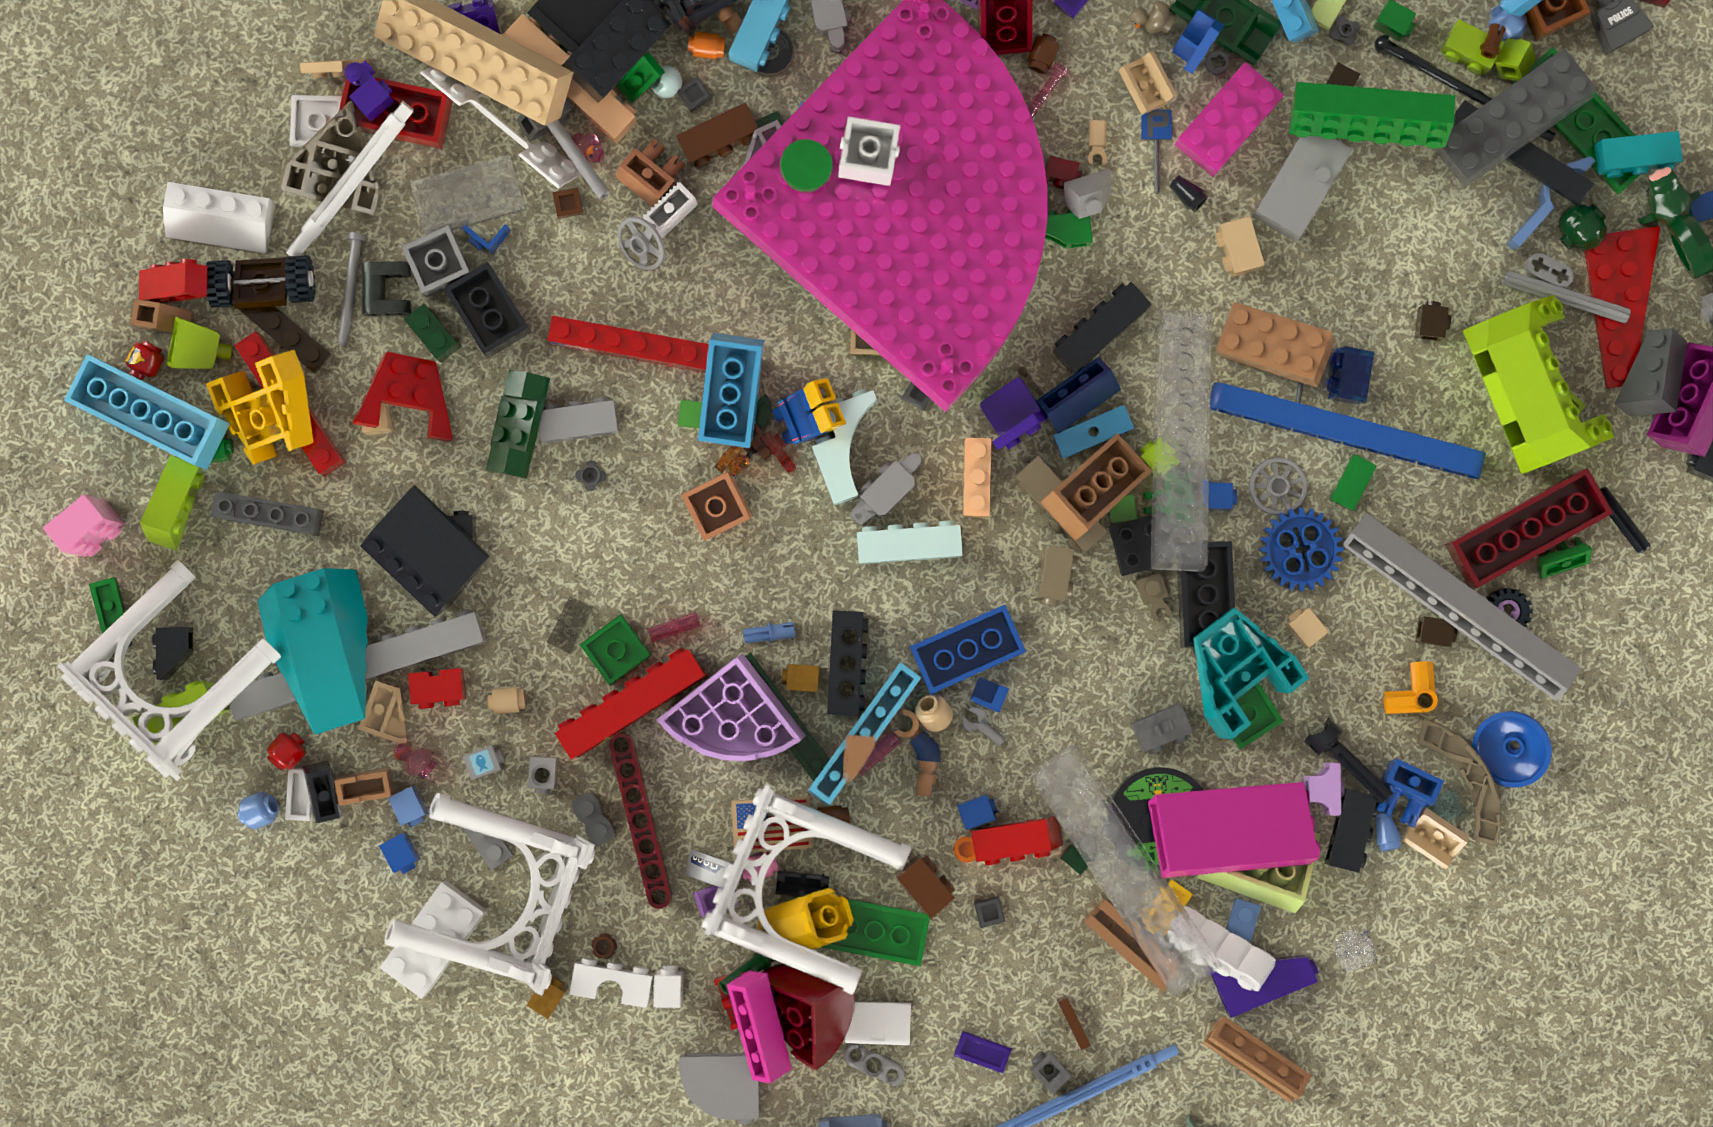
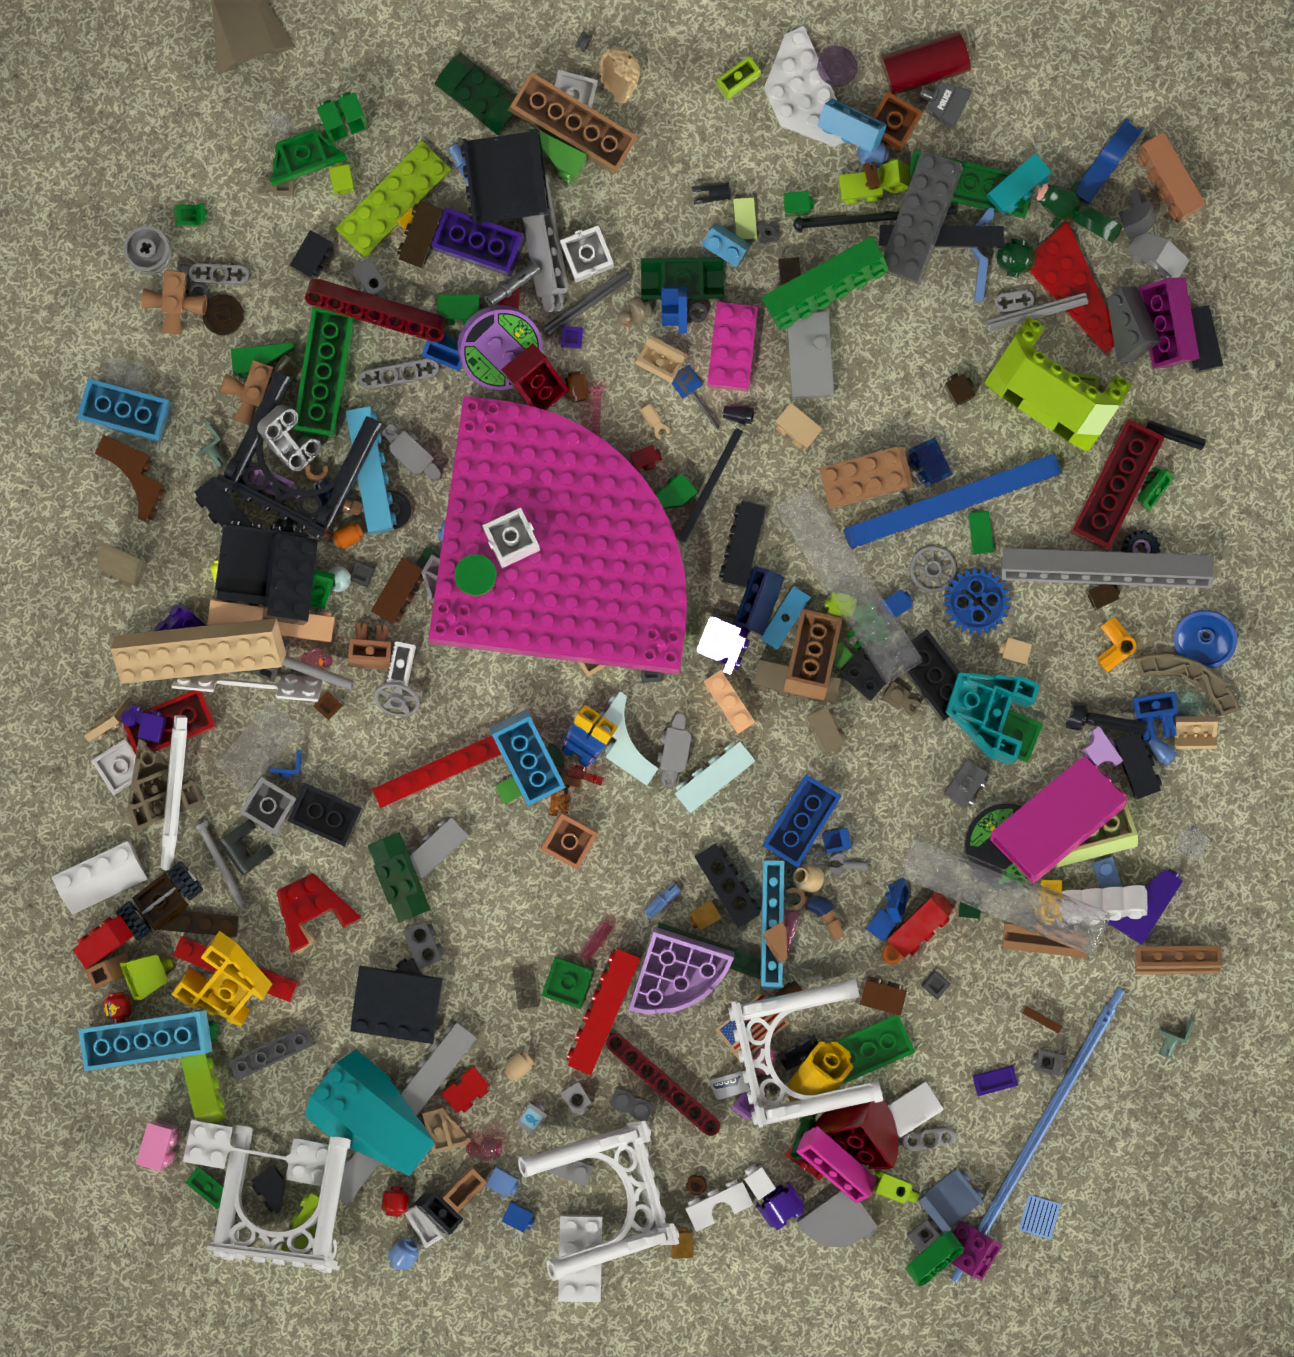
camera: 35 degrees left, 0 degrees up
(137, 562) = (210, 1144): none -> white hinge
(432, 333) = (298, 855): dark green brick -> none
(488, 509) = (417, 947): none -> dark grey brick
(590, 483) = (466, 872): dark grey plate -> none
(674, 1029) = (780, 1206): none -> dark purple brick
(798, 1083) = (887, 1184): none -> lime torso
(1010, 797) = (897, 899): none -> blue plate
(1088, 193) = (673, 461): light grey slope -> none
(1110, 245) = (695, 514): none -> black tile

